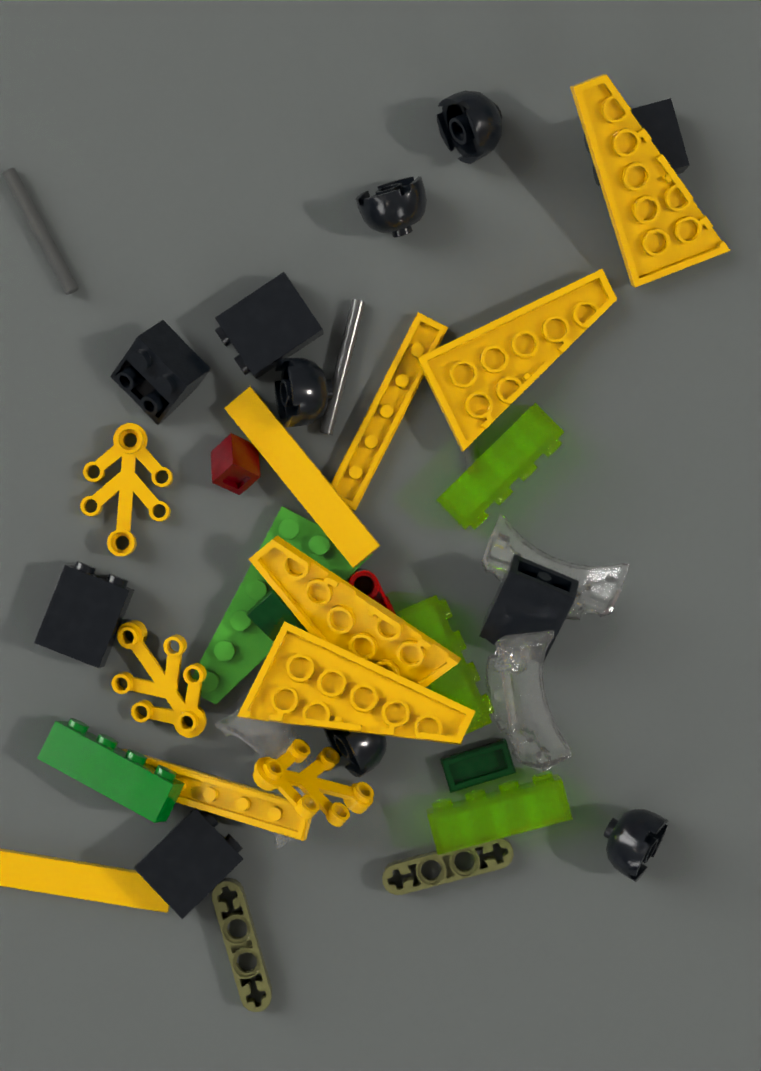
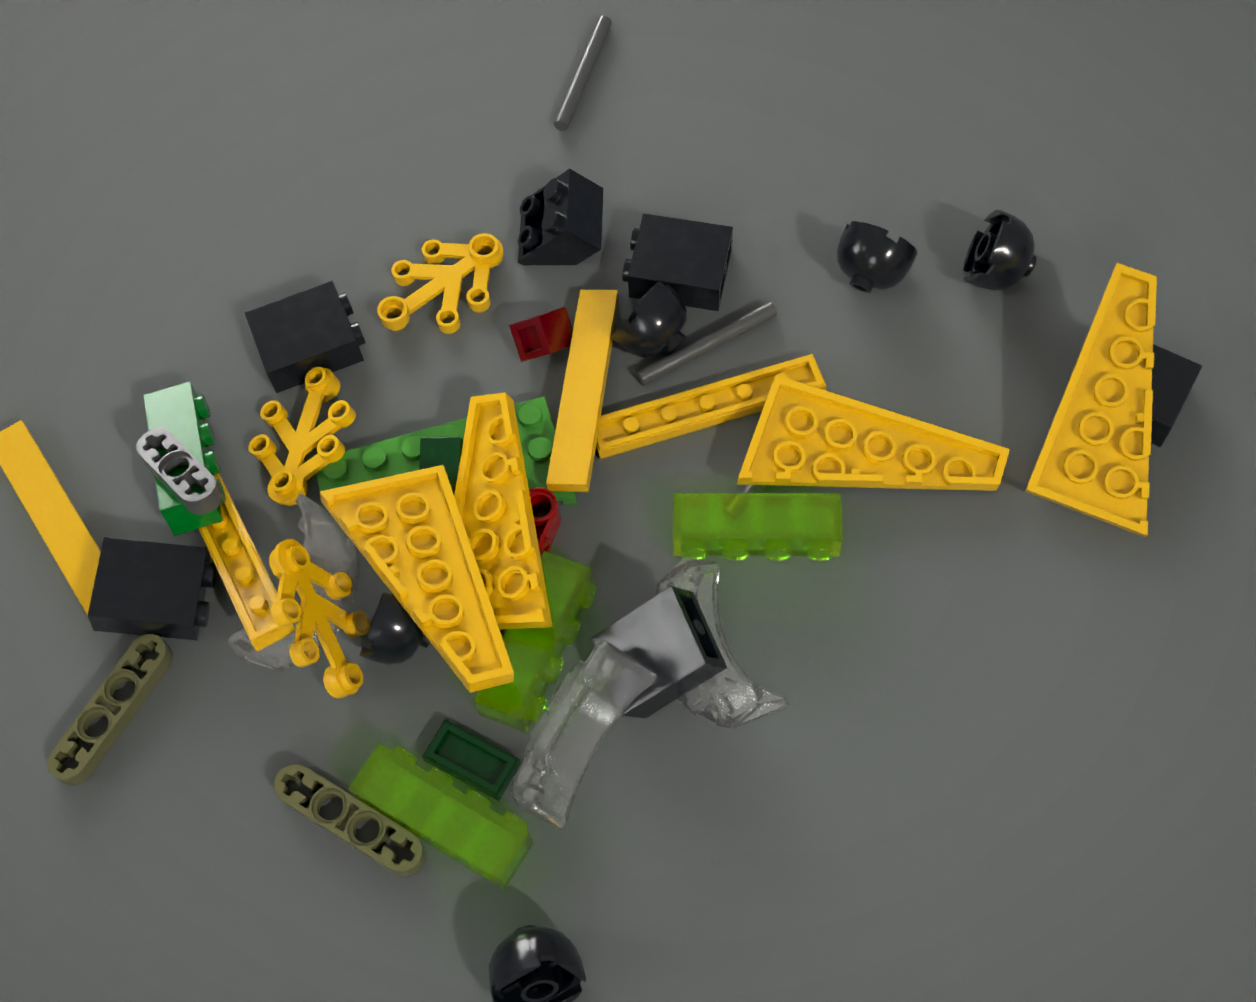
camera: 55 degrees right, 25 degrees down
(113, 778) = (179, 485): none -> dark grey beam

